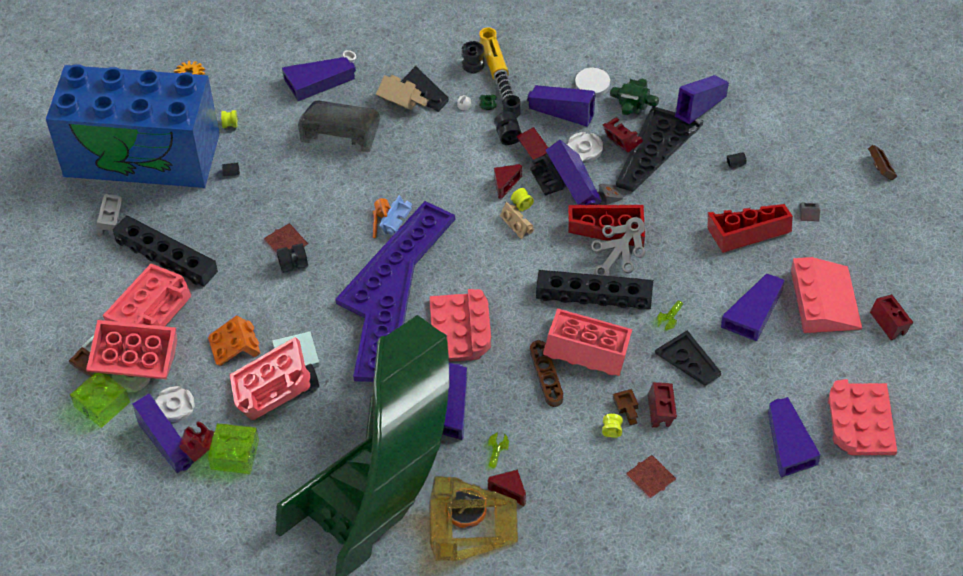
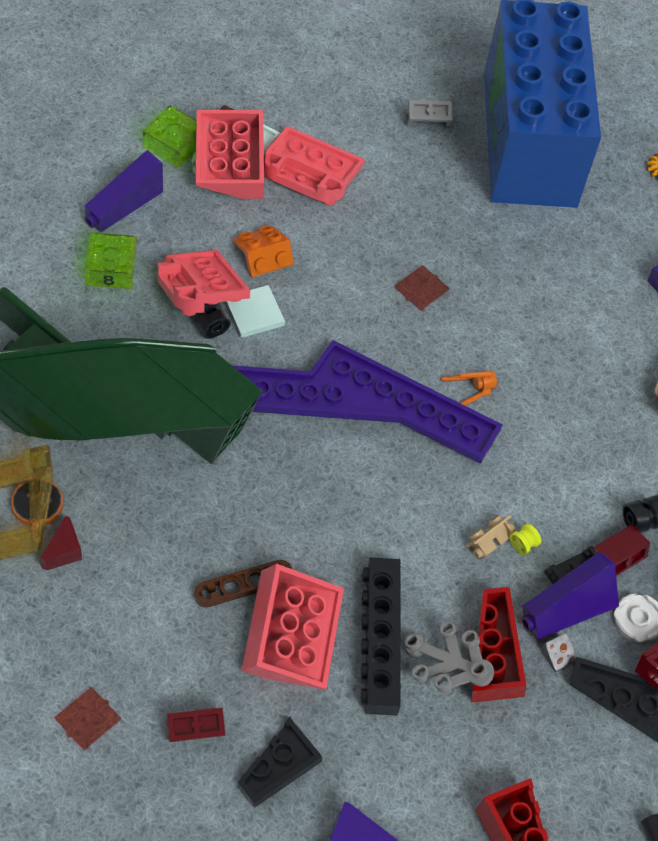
camera: 75 degrees right, 5 degrees up
(165, 251) = (384, 171): black brick -> none
(176, 409) = (178, 211): white tile -> none
(196, 443) = (113, 219): dark red hinge -> none
(229, 119) = (597, 210): neon yellow wheel -> none
(231, 169) = (520, 221): black hinge -> none
(285, 258) = (389, 291): black wheel -> none
(340, 121) = (612, 322): clear smoke windscreen -> none
(398, 209) = (476, 392): light blue hinge -> none
(456, 403) = (187, 473): dark purple slope -> none
(464, 322) = (308, 479): coral plate -> none
(497, 448) = (125, 532): clear neon green bar -> none
(506, 177) = (556, 516): dark red slope -> none
(612, 425) = (159, 664): neon yellow wheel -> none
(627, 403) = (198, 681): reddish brown plate -> none
(670, 316) = (353, 738): clear neon green bar -> none

